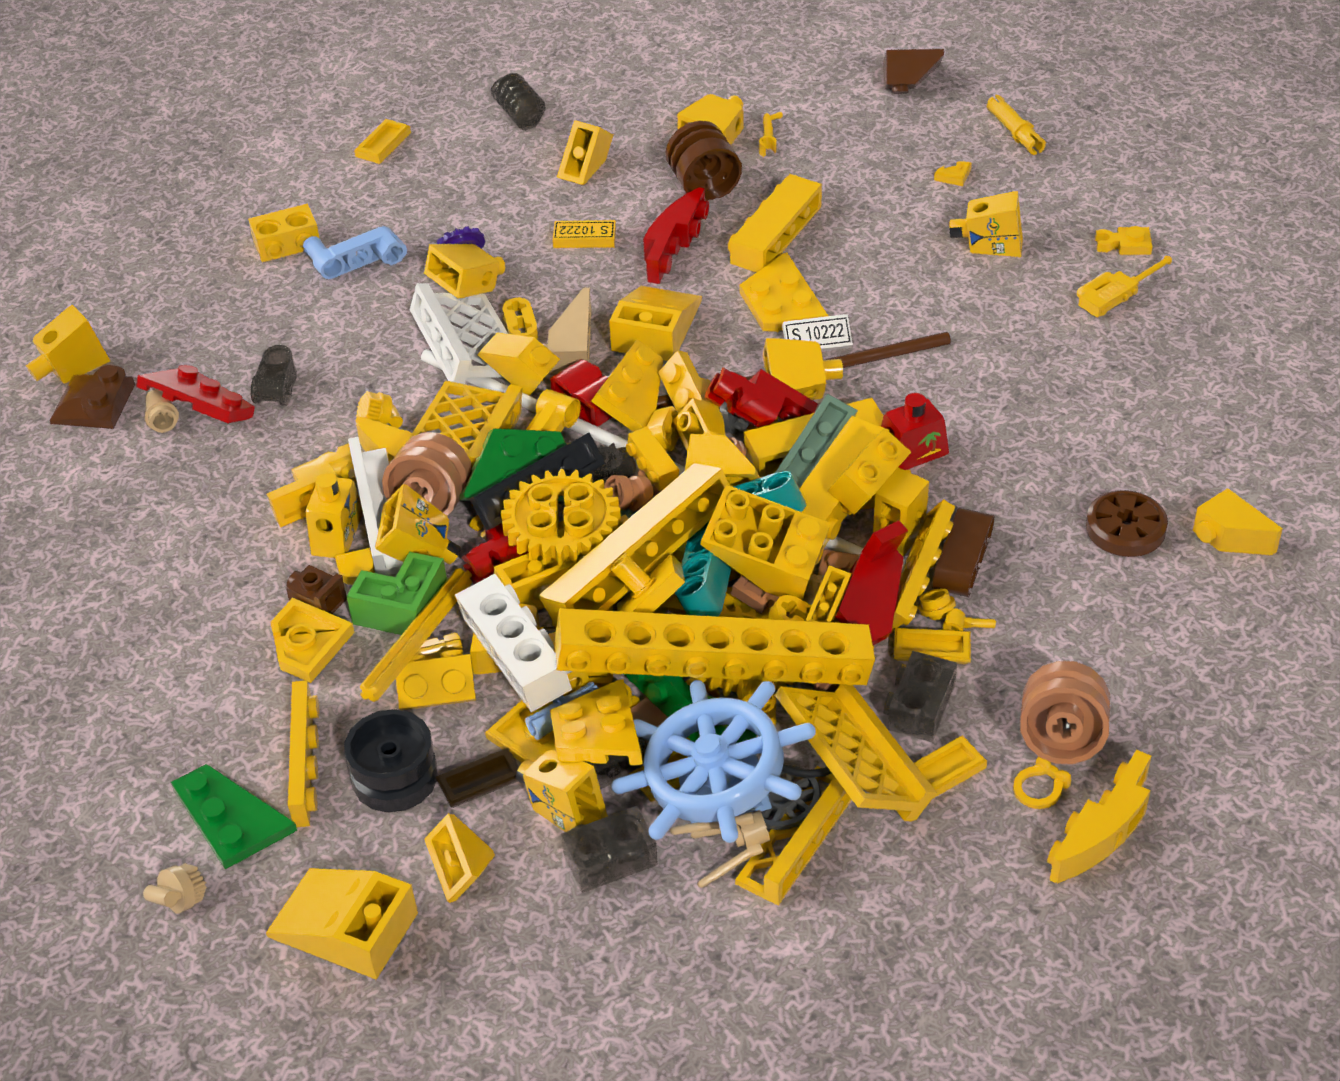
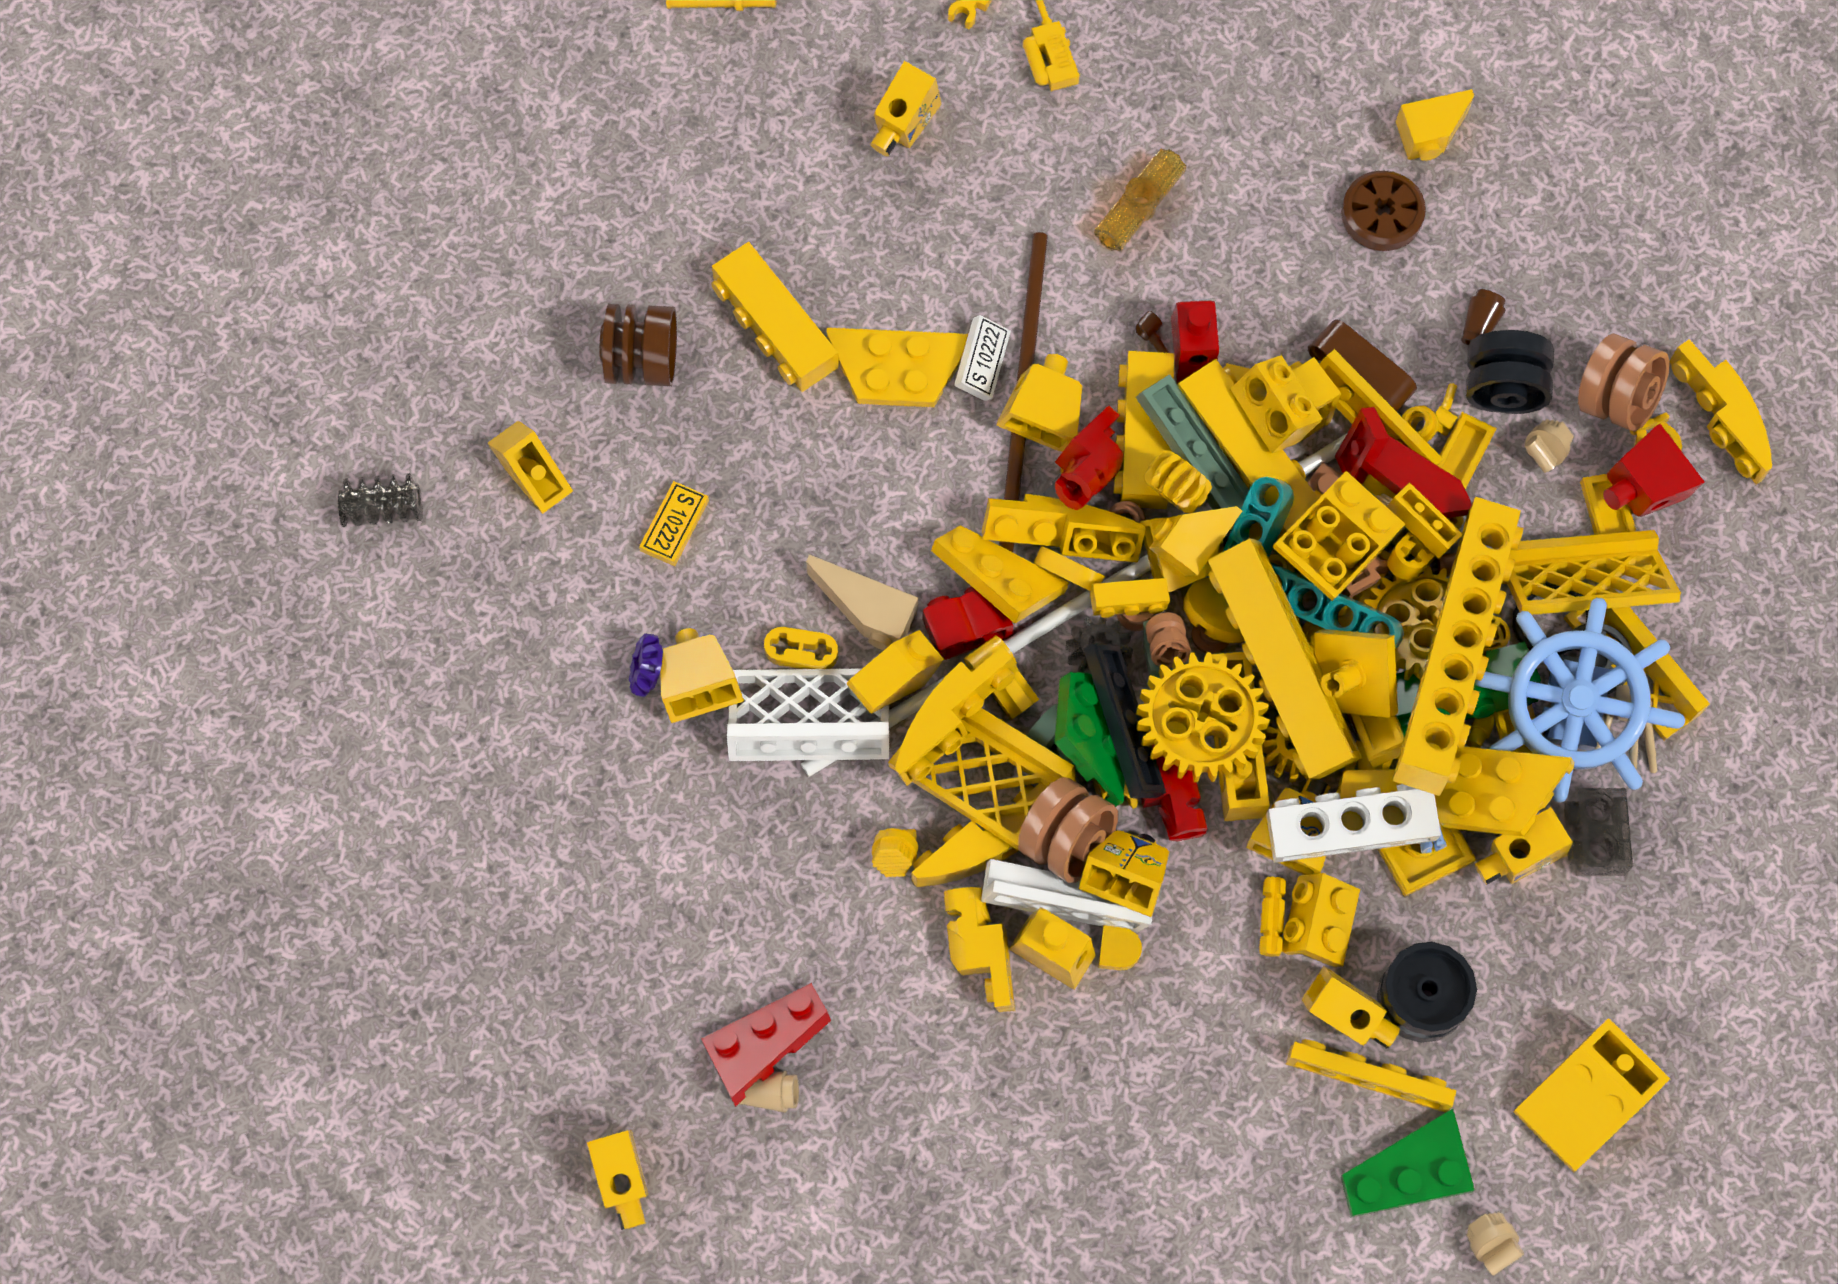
camera: 70 degrees left, 25 degrees up
(94, 399) = (703, 1166): reddish brown slope -> none
(274, 376) = (781, 946): clear smoke piece -> none
(282, 231) = (496, 860): yellow brick -> none
(307, 638) = (1210, 1028): yellow plate -> none
(314, 586) = (1143, 1016): reddish brown brick -> none
(341, 702) = (1336, 999): none -> yellow torso
(342, 257) = (586, 751): light blue beam -> none
(382, 141) = (358, 687): yellow tile -> none
(395, 602) = (1213, 910): bright green panel -> none
(414, 636) = (1274, 914): yellow axle -> none
(457, 855) = (1552, 970): yellow slope -> none
(478, 777) = (1461, 916): dark brown tile -> none
(486, 378) = (938, 722): none -> yellow slope
(654, 318) = (880, 506): yellow slope -> none
(673, 230) = (727, 422): red slope -> none
(722, 112) = (546, 300): yellow torso -> none
(763, 439) = (1178, 481): none -> yellow gear
(768, 140) = (592, 254): yellow piece -> none
(909, 67) = (562, 50): reddish brown slope -> none
(920, 696) = (1536, 483): clear smoke brick -> none
(954, 174) = (769, 98): yellow tile -> none
(976, 697) = (1549, 444): none -> tan piece
(990, 772) = (1651, 476): none -> red torso
(1018, 374) = (1127, 214): none -> clear yellow piece
(1020, 633) = (1510, 372): none -> black wheel
(1071, 616) = (1483, 314): none -> reddish brown cone

